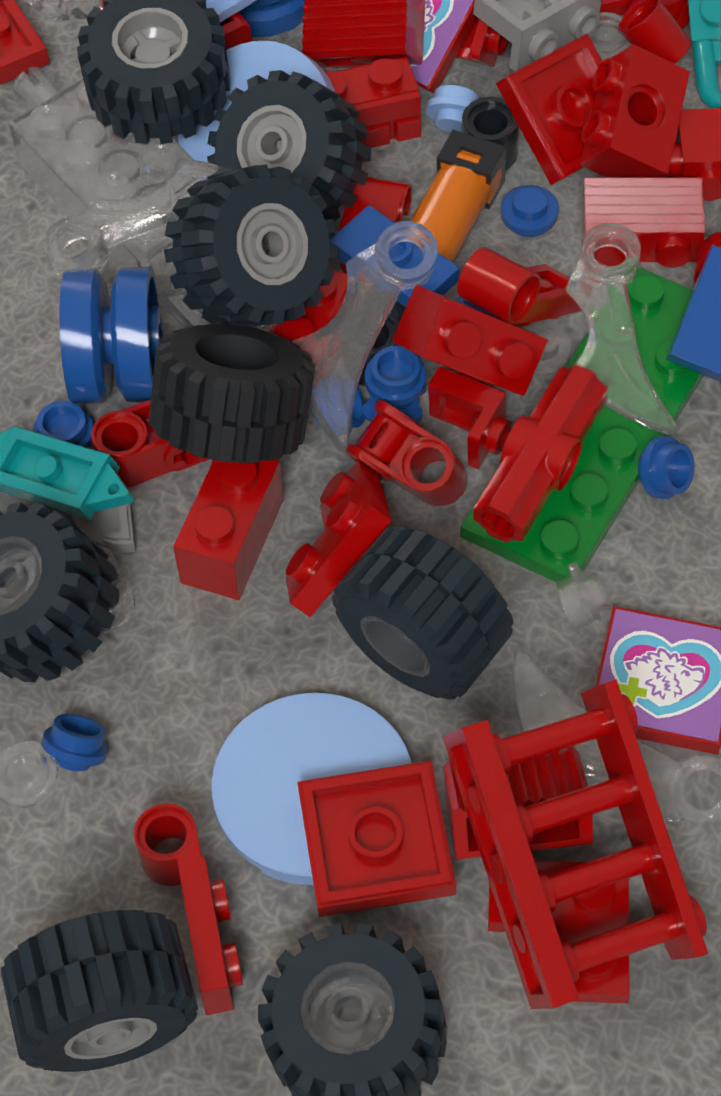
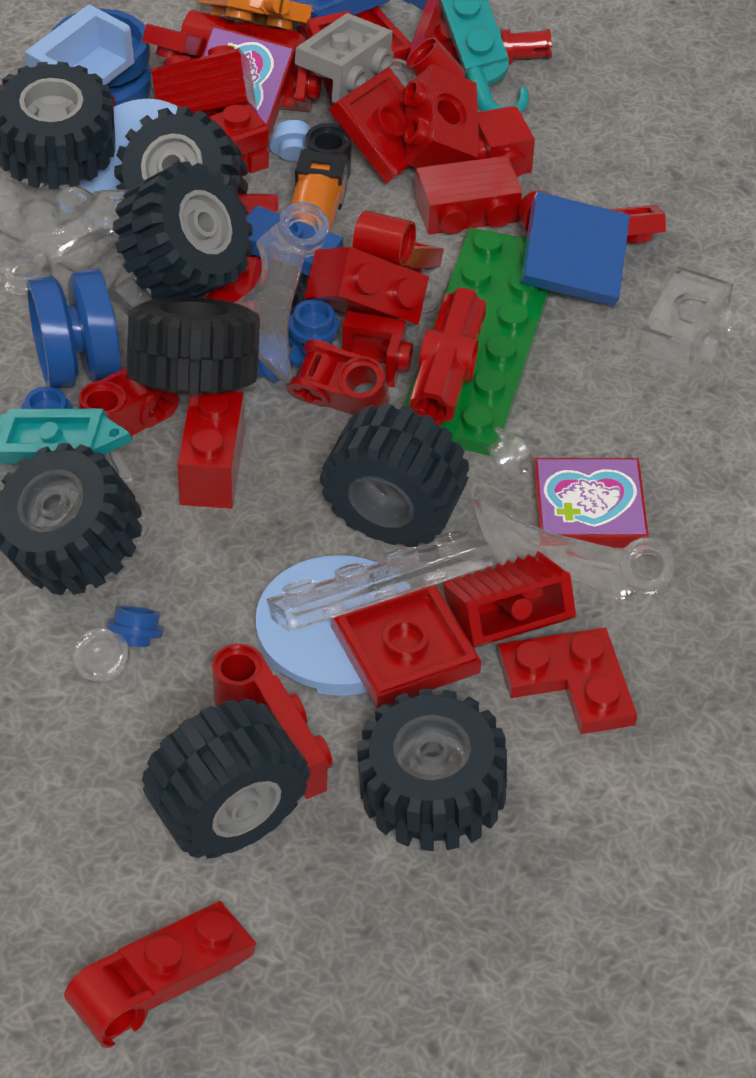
camera: 20 degrees left, 10 degrees down
(352, 753) = (364, 585): none -> clear plate
(353, 518) = (314, 427): red plate -> none
(529, 210) = (375, 199): blue plate -> none
(529, 896) = (527, 627): red fence -> none
(611, 339) = (472, 267): clear piece -> none
(666, 467) = (543, 358): blue plate -> none

